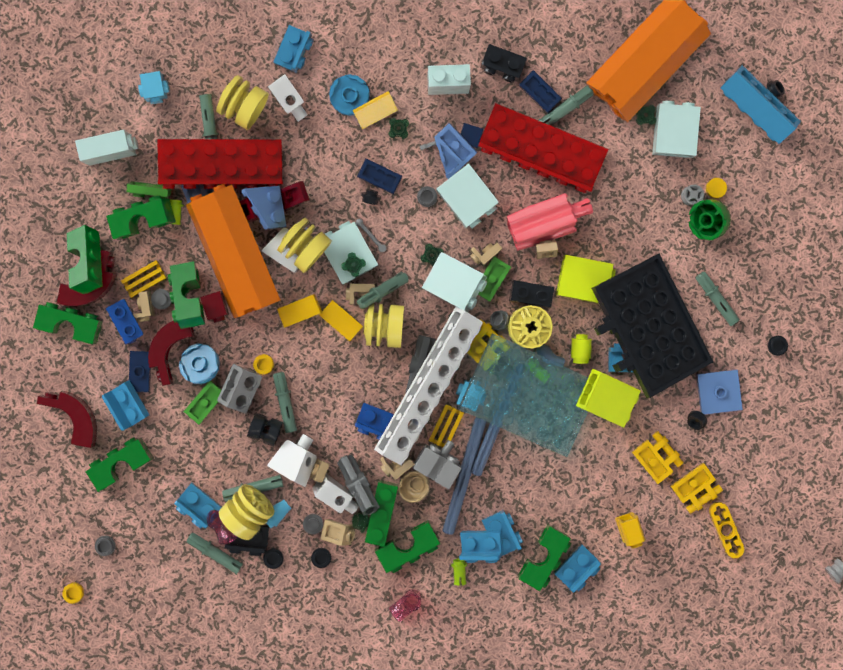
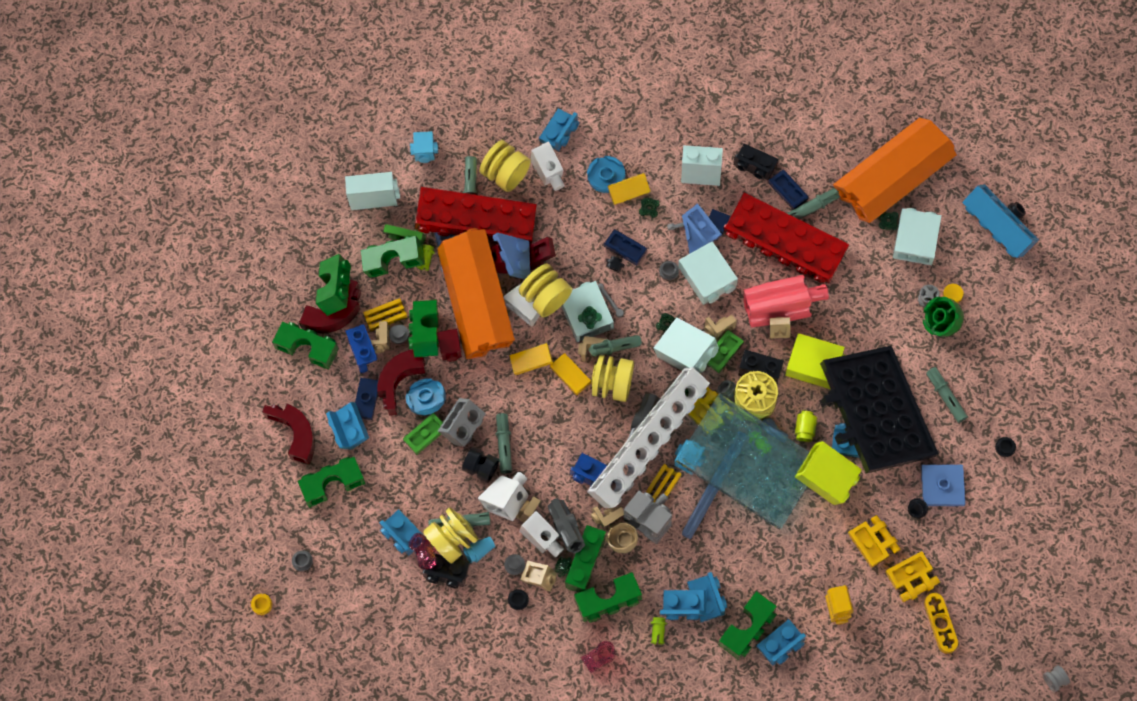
camera: 10 degrees right, 20 degrees down
(214, 553) = (411, 581): sand green axle -> none
(263, 364) = (488, 405): yellow tile -> none
(273, 558) = (469, 594): black plate -> none
(464, 476) = (674, 536): sand blue axle -> none

